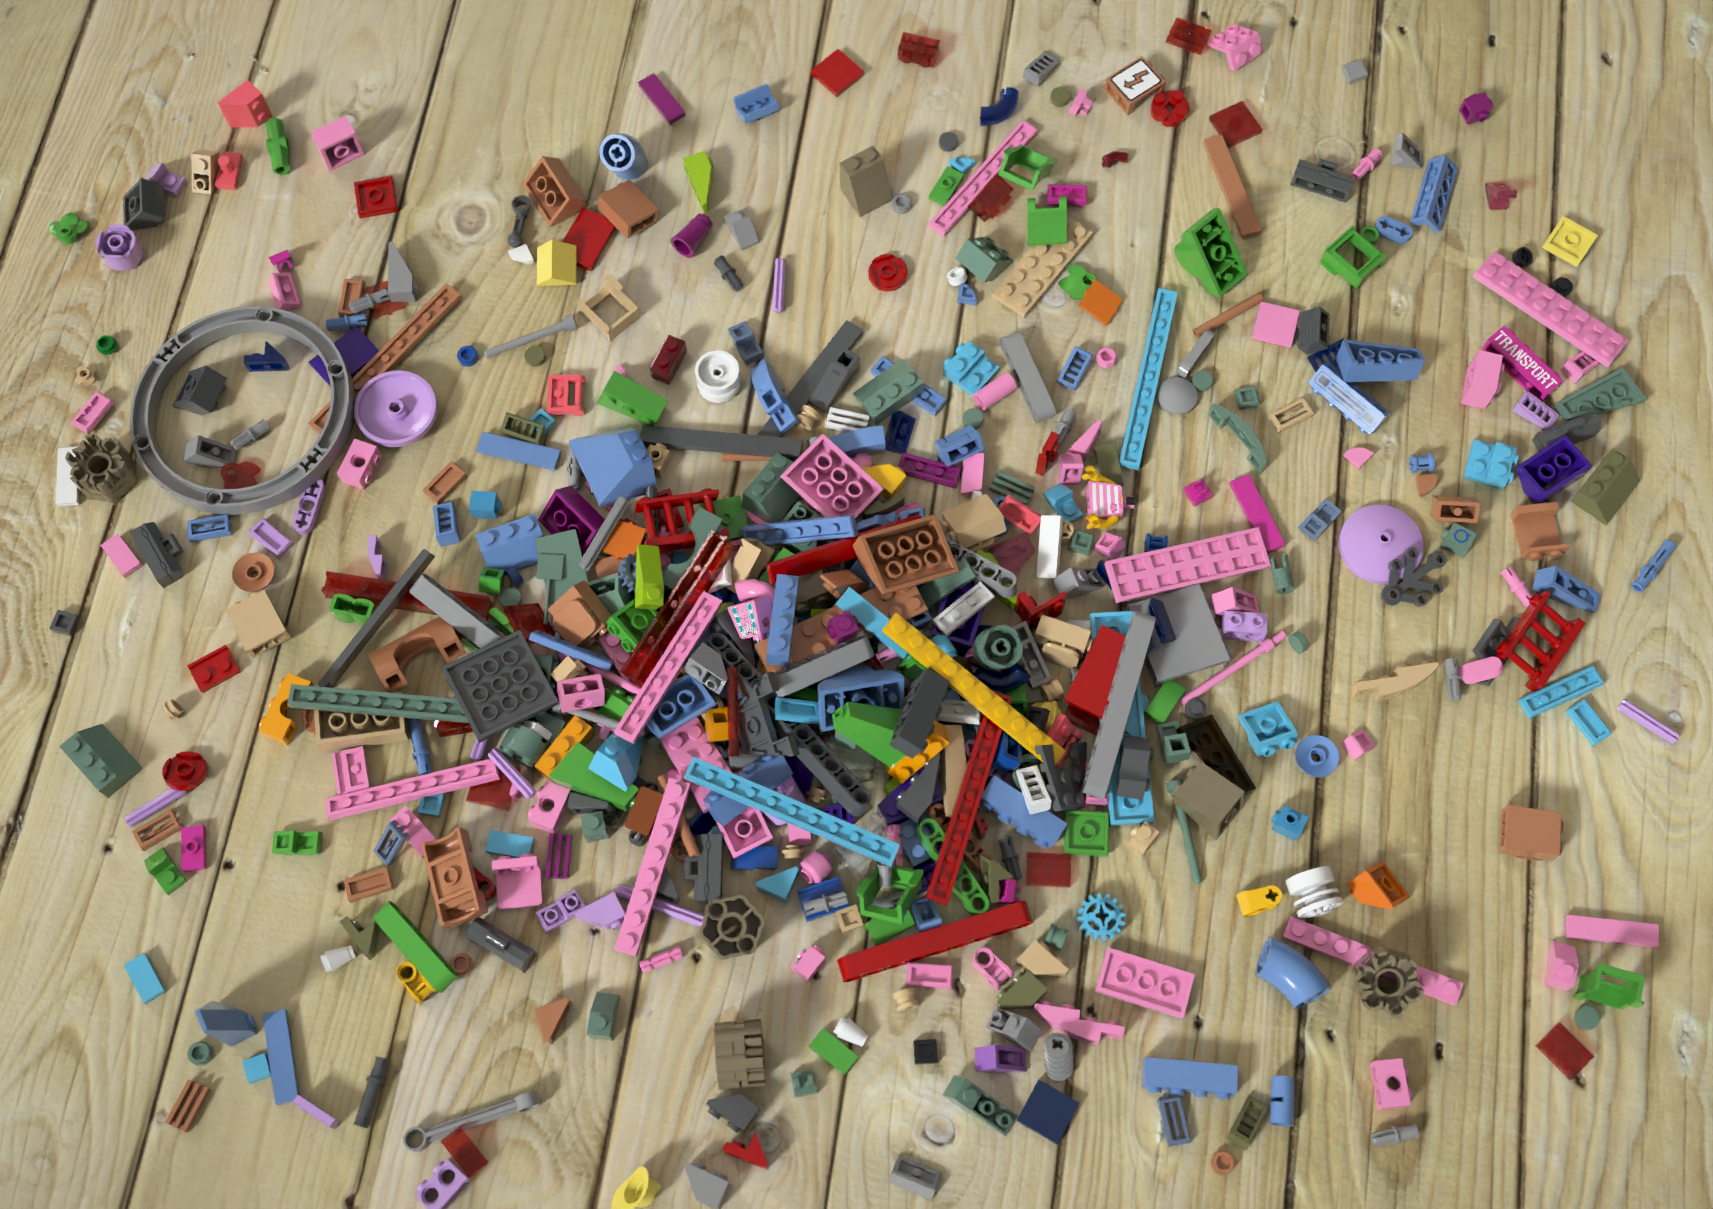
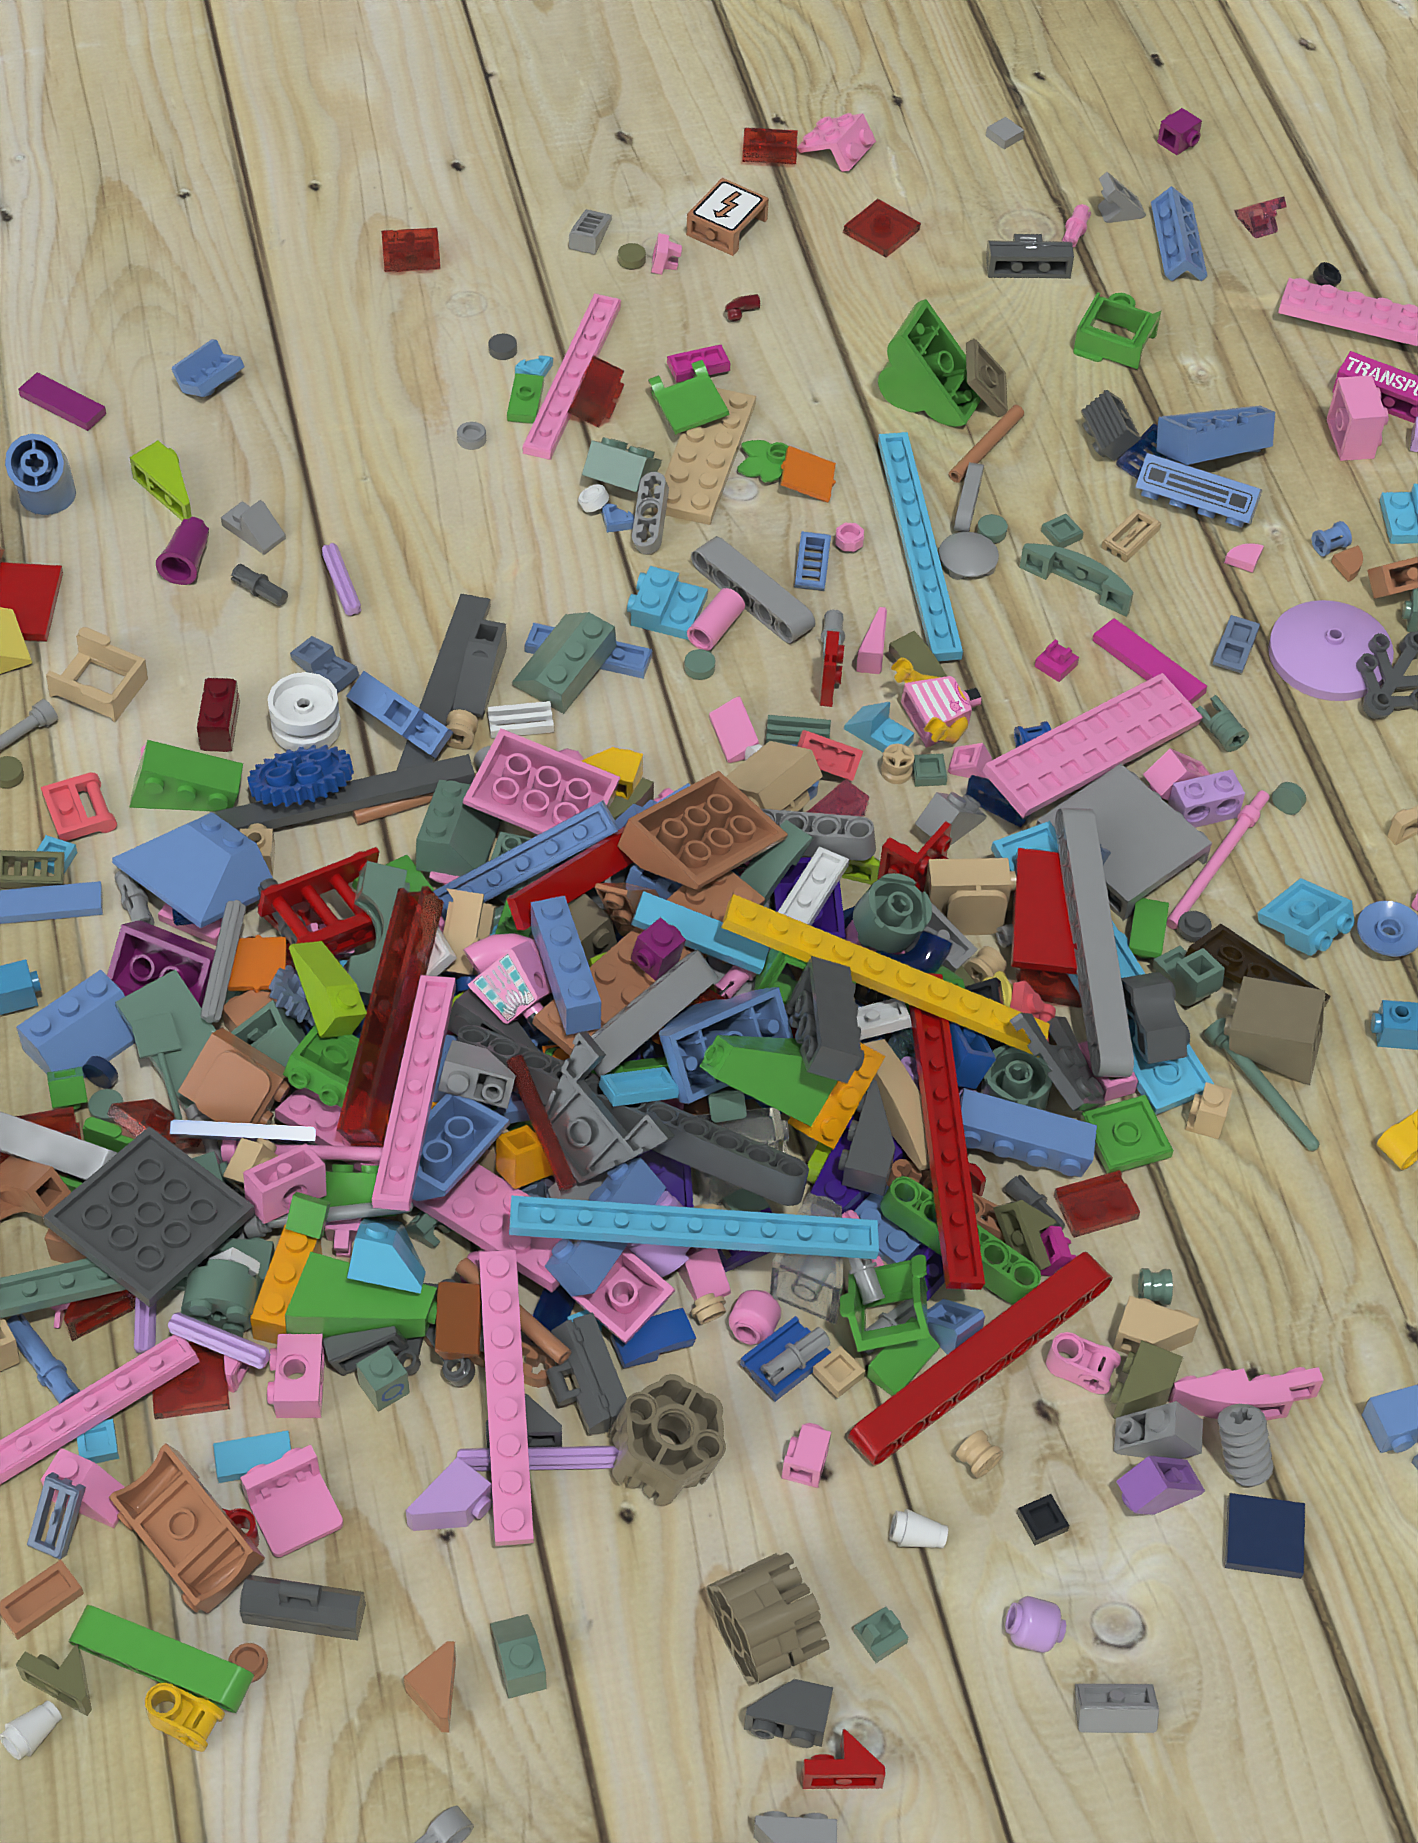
camera: 25 degrees left, 15 degrees down
(560, 837) = (332, 1418): magenta tile -> none
(560, 911) = (378, 1526): lavender slope -> none
(586, 717) = (308, 1215): none -> bright green tile
(628, 208) = (73, 543): nougat brick -> none
(661, 959) = (573, 1536): bright pink axle -> none
(698, 420) = (300, 775): none -> blue gear
(779, 885) = (710, 1361): medium azure slope -> none
(833, 1051) = (904, 1571): bright green tile -> none
(837, 72) = (306, 306): red tile -> none
(860, 441) = (562, 728): medium blue slope -> none
(865, 181) = (410, 414): dark tan slope -> none
(887, 272) = (491, 522): red tile -> none
(890, 1113) = (1035, 1624): none -> lavender head
(899, 432) = (601, 712): clear blue slope -> none
(929, 975) = (996, 1409): bright pink tile -> none
(930, 470) = (672, 745): magenta tile -> none
(959, 445) = (699, 698): medium blue brick -> none
(979, 1104) = (1159, 1560): sand green slope -> none
(986, 291) = (656, 523): none -> light grey beam
(1002, 109) = (559, 290): clear blue cylinder -> none
(1029, 160) = (629, 339): bright green piece -> none
(1035, 803) = (1040, 1108): white slope -> none
(1049, 547) = (890, 783): white tile -> none
(1070, 468) = (870, 680): bright pink slope -> none
(1091, 918) = (1206, 1237): medium azure gear -> none
(1145, 983) = (1312, 1304): bright pink plate -> none
(1162, 623) = (1108, 835): clear blue slope -> none
(1170, 98) = (774, 227): red plate -> none
(1232, 186) = (907, 290): nougat tile -> none
(1247, 268) = (986, 377): none -> dark tan tile
(1275, 324) = (1054, 436): bright pink tile -> none
(1393, 230) = (1149, 290): medium blue beam -> none
(1562, 286) = (1395, 293): black plate -> none
(1569, 241) = (1375, 243): light yellow plate -> none

